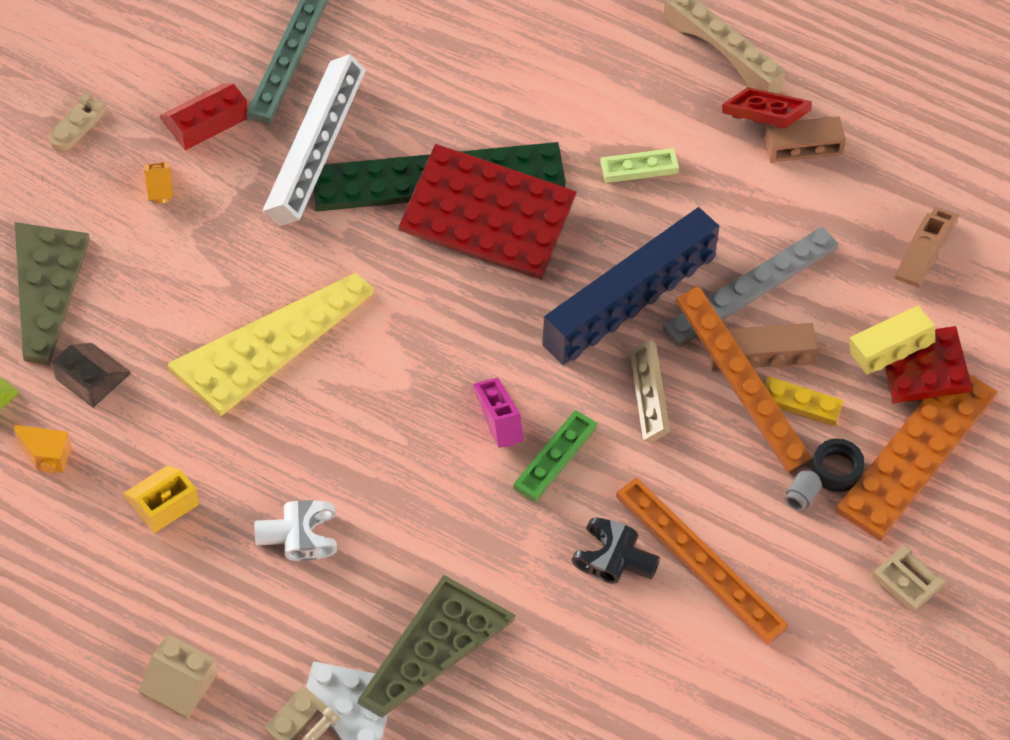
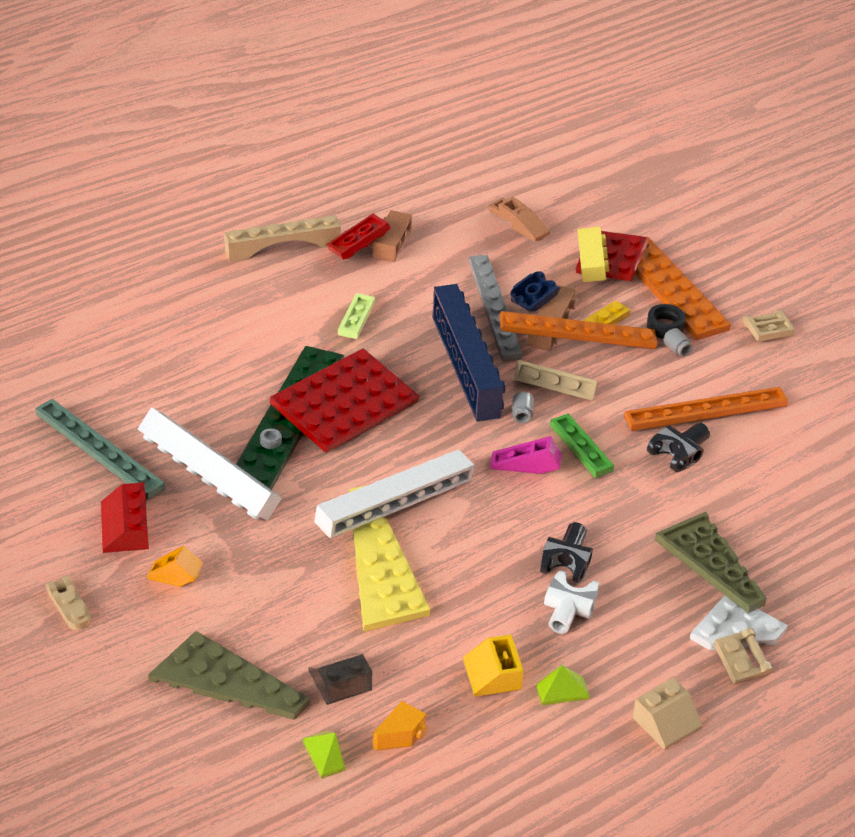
camera: 65 degrees left, 15 degrees down
(173, 571) = (561, 687): none -> lime slope
(359, 311) = (393, 493): none -> white brick
(371, 503) = (568, 552): none -> black connector
(381, 173) = (270, 438): none -> light grey tile
(583, 376) = (522, 407): none -> light grey brick
(779, 308) = (534, 291): none -> dark blue slope

